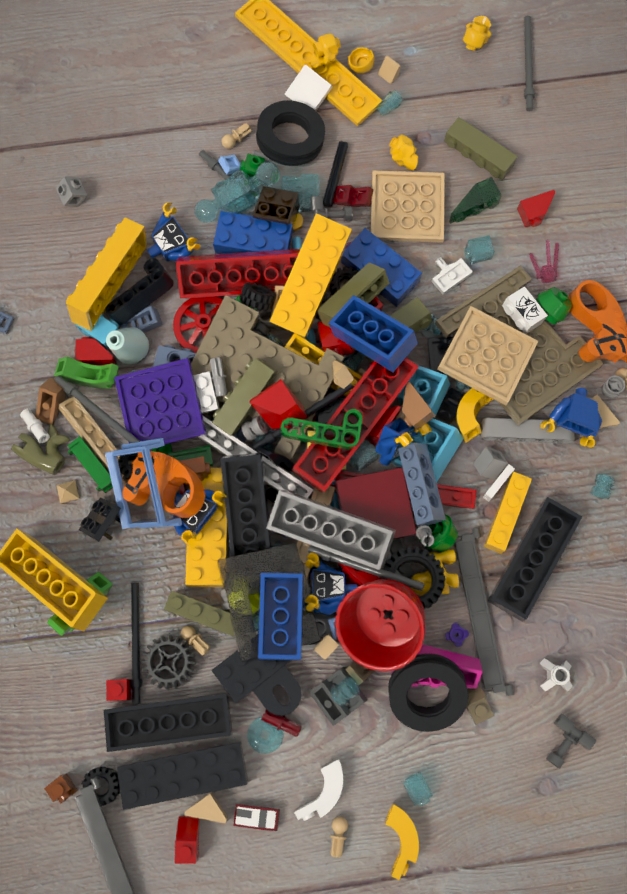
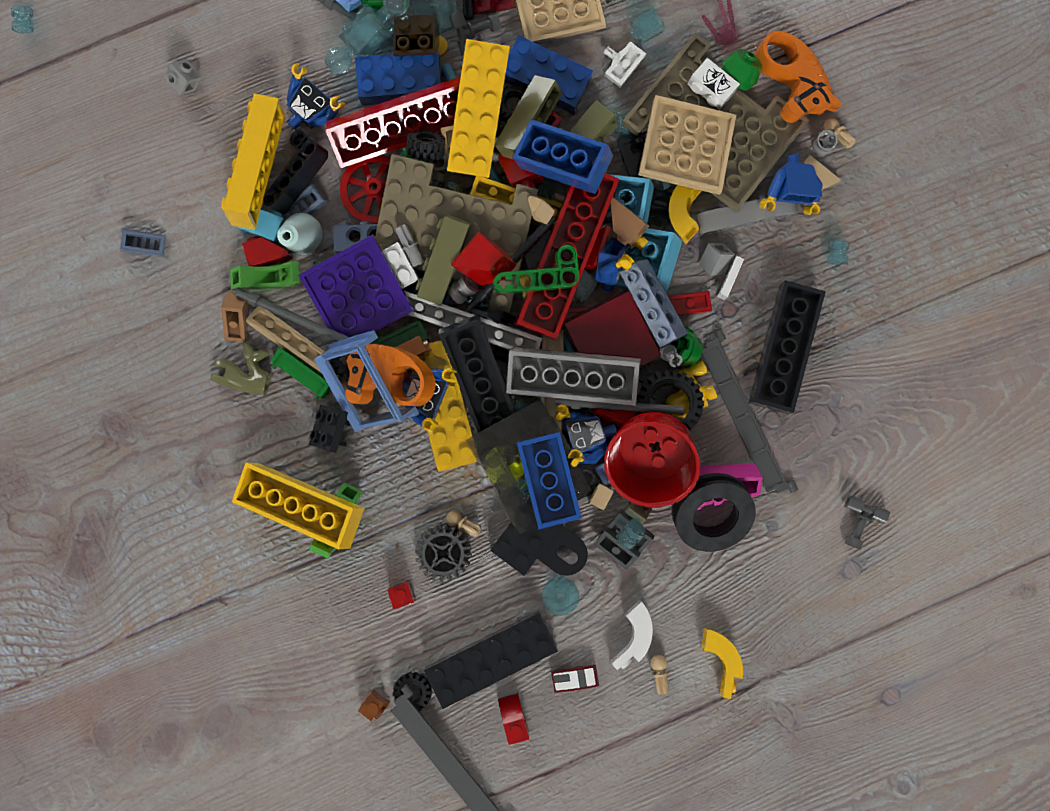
camera: 20 degrees left, 10 degrees up
(34, 425) = (227, 348): white pin -> none
(68, 491) = (284, 408): tan slope -> none
(135, 682) = (416, 581): black bar -> none
(167, 722) = (461, 613): black brick -> none
(199, 613) = (461, 496): olive brick -> none
(208, 809) = (525, 684): tan slope -> none
(281, 723) = (574, 581): dark red axle -> none
(417, 789) = (726, 608): clear light blue brick -> none
(455, 628) = (732, 443): dark purple plate -> none
(478, 706) = (766, 511): dark tan slope -> none
(507, 512) = (747, 307): yellow brick -> none
(556, 675) = (835, 459): white rock -> none

